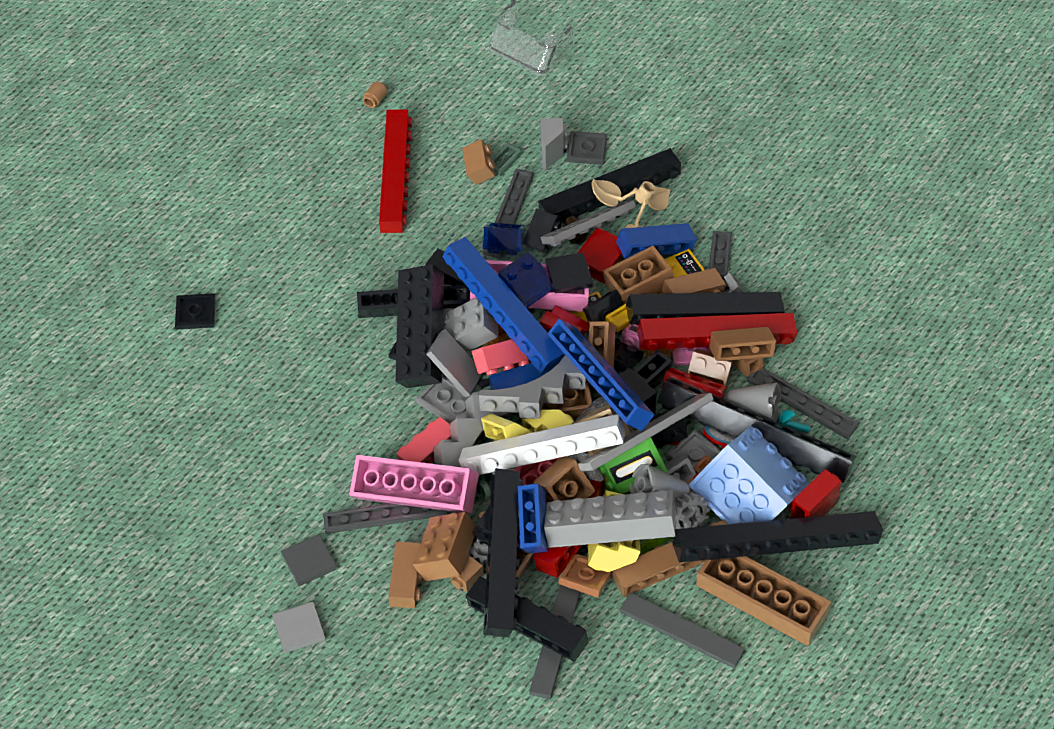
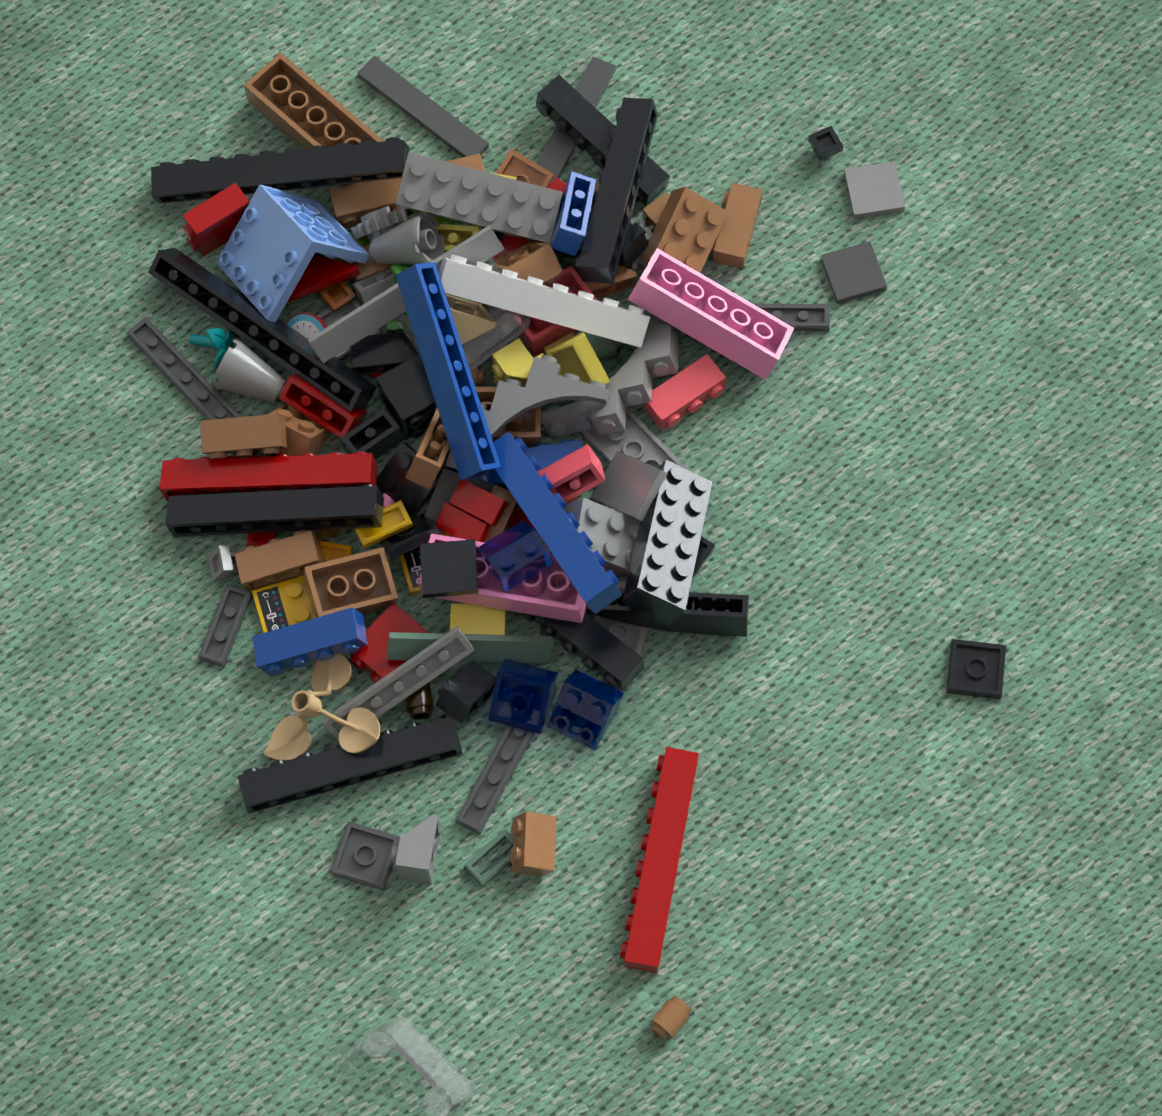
camera: 170 degrees left, 15 degrees up
(342, 649) = (825, 143): none -> black tile
(455, 232) = (585, 709): none -> clear blue slope
(567, 246) = (486, 647): none -> sand green tile

